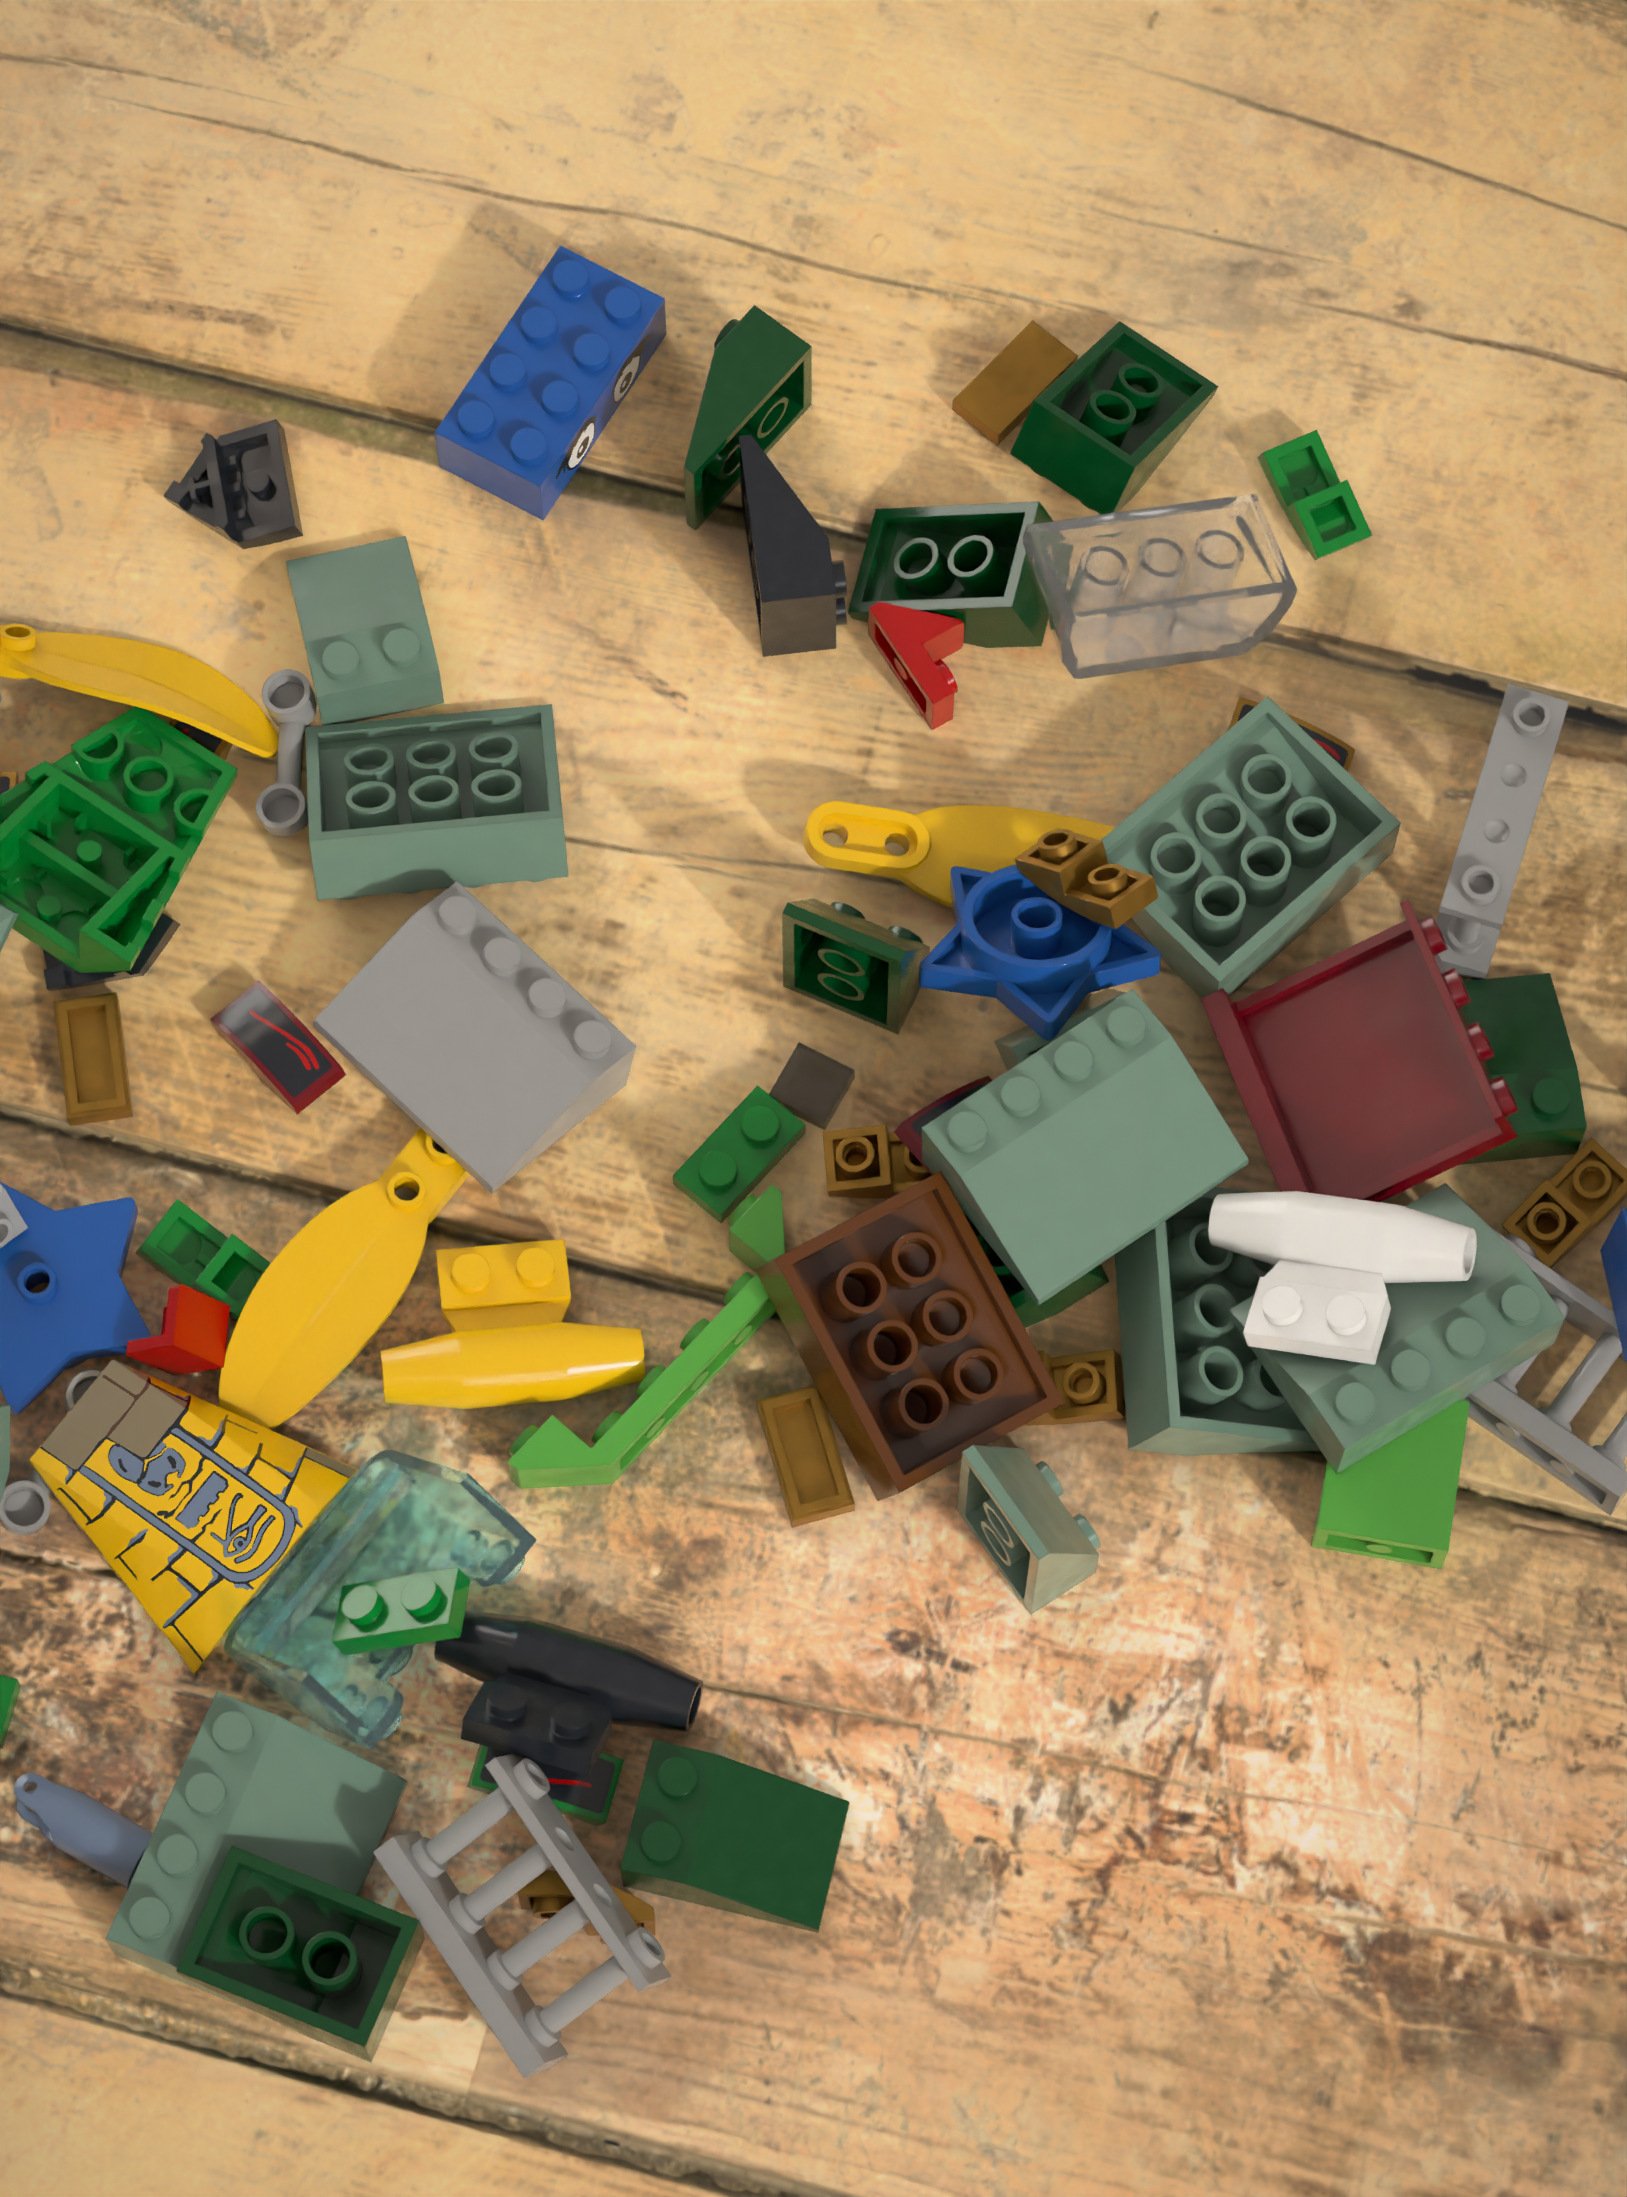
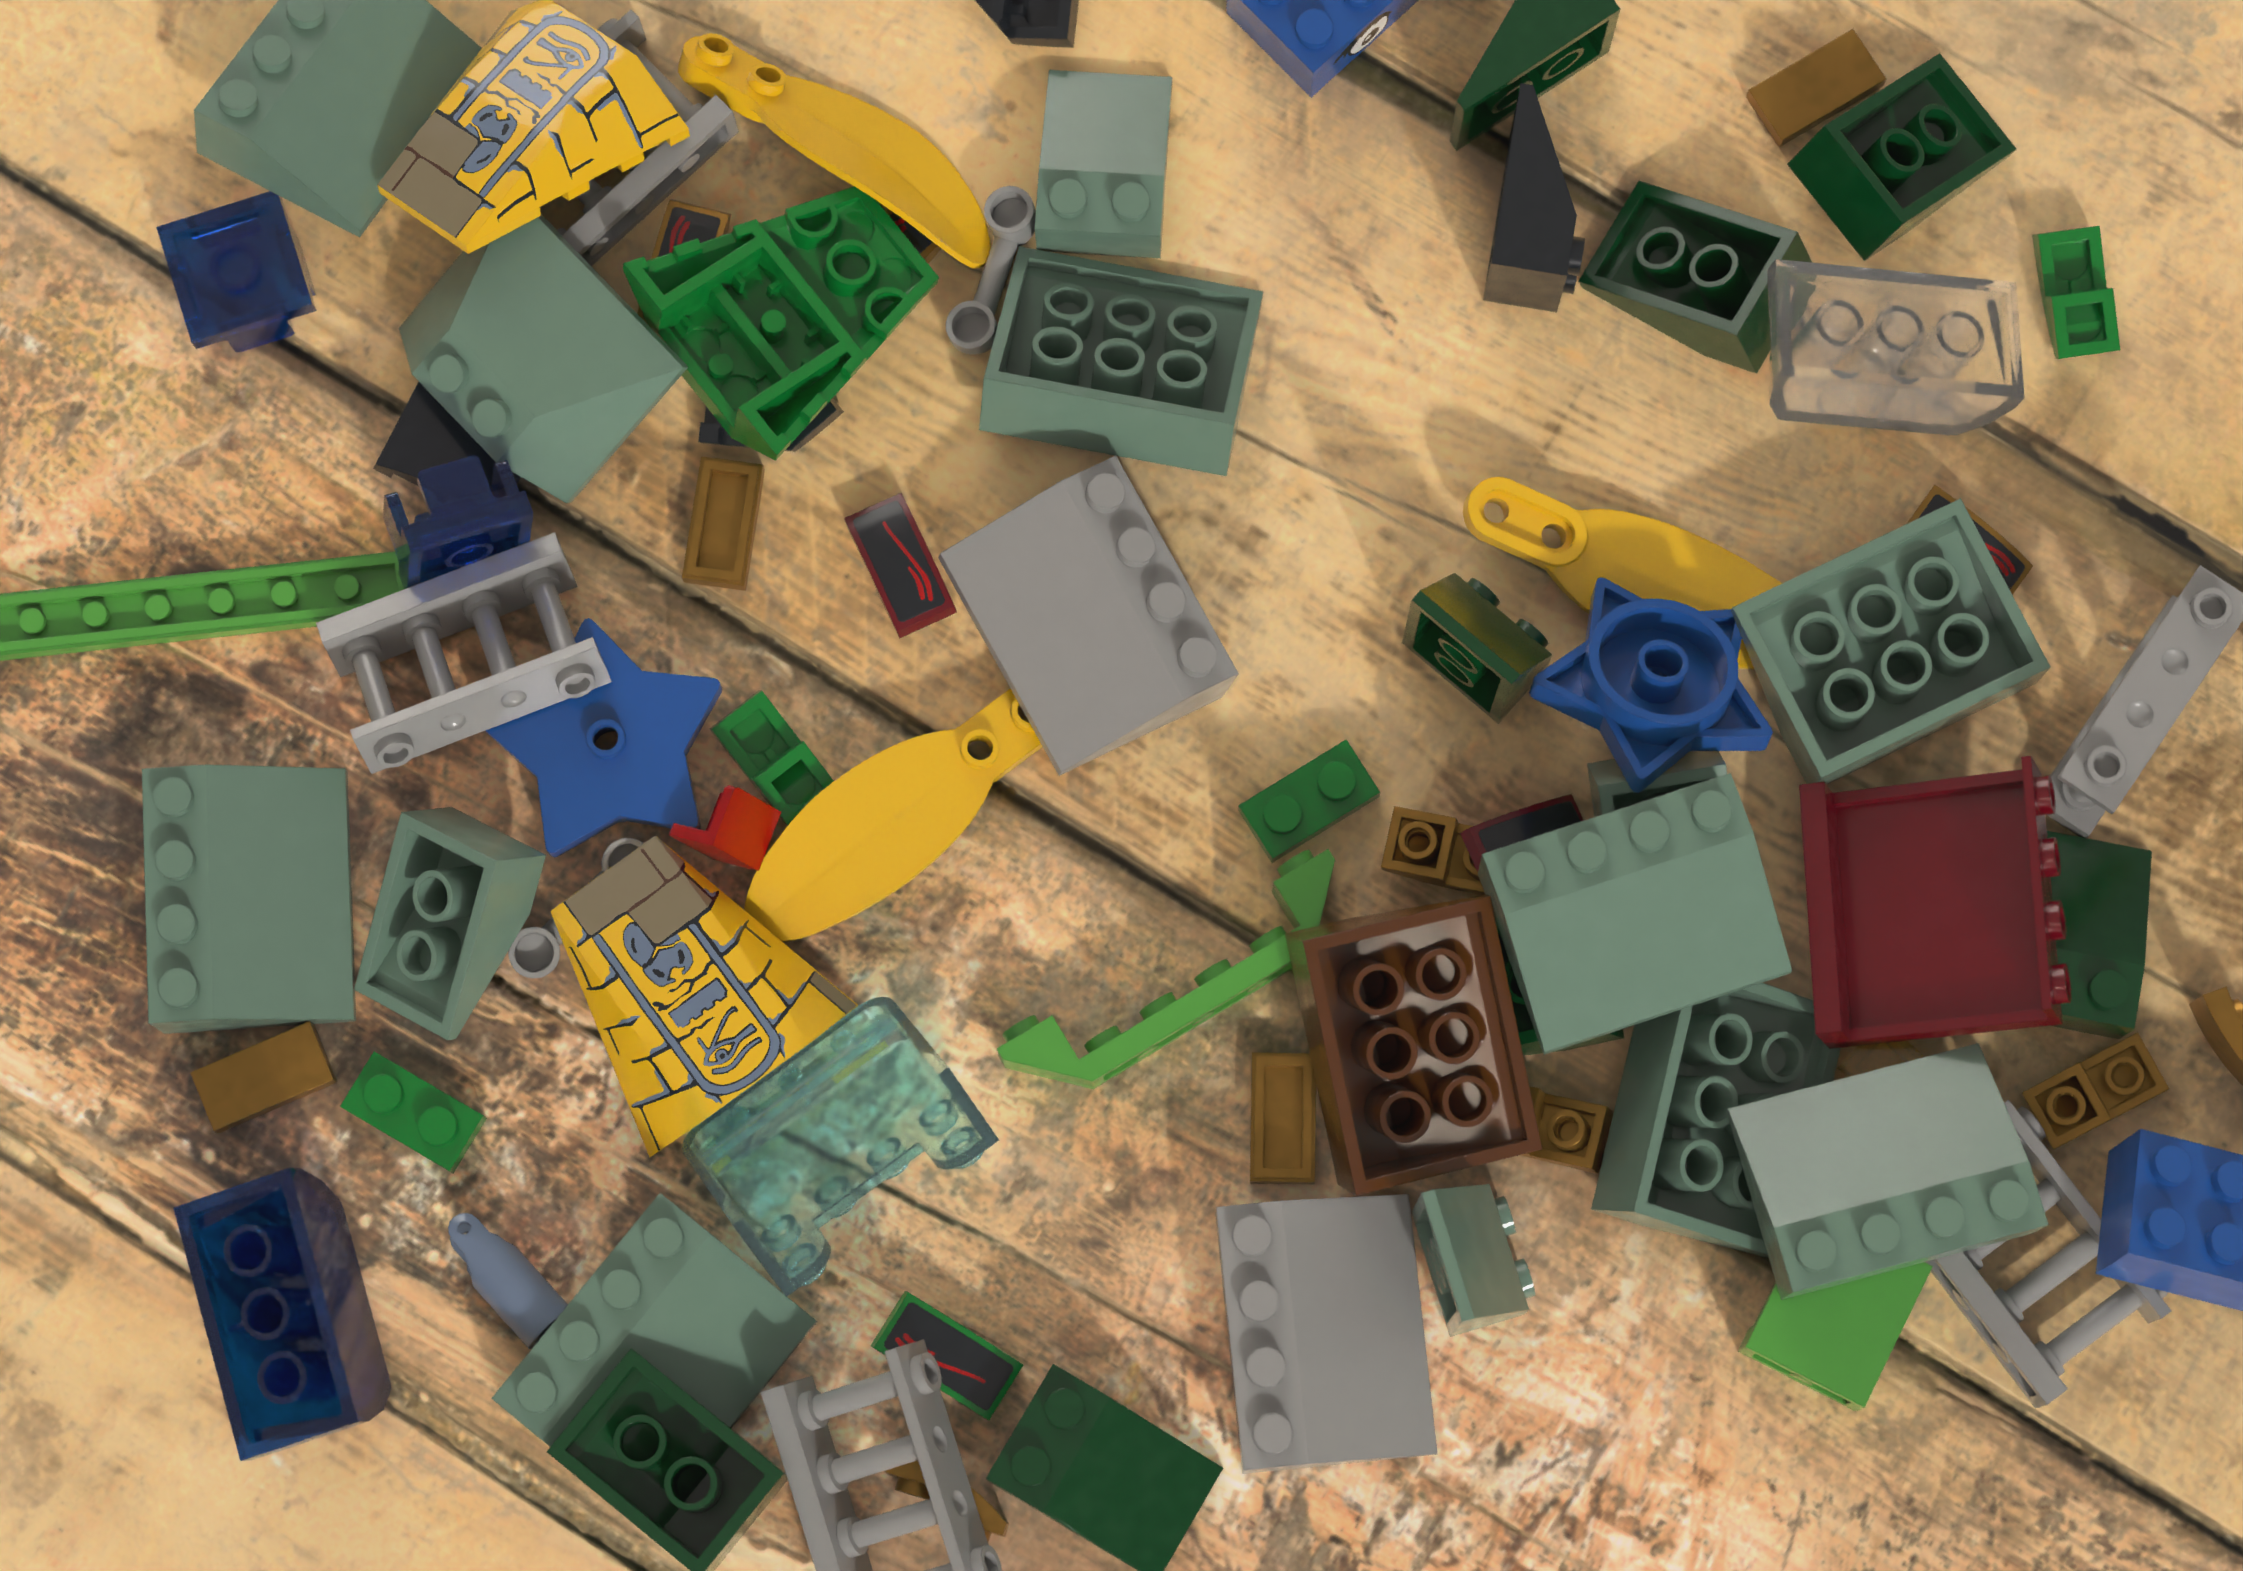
camera: 20 degrees right, 10 degrees up
(401, 1611) = (854, 1164): green plate -> none
(509, 1336) = (1036, 925): yellow plate -> none
(559, 1689) = (979, 1283): black plate -> none
(812, 1085) = (1399, 753): clear smoke tile -> none
(906, 1642) = (1325, 1332): none -> light grey slope
(914, 648) = (1629, 334): red slope -> none
(1080, 878) = (1718, 636): pearl gold slope -> none
(1333, 1266) = (1839, 1103): white plate -> none

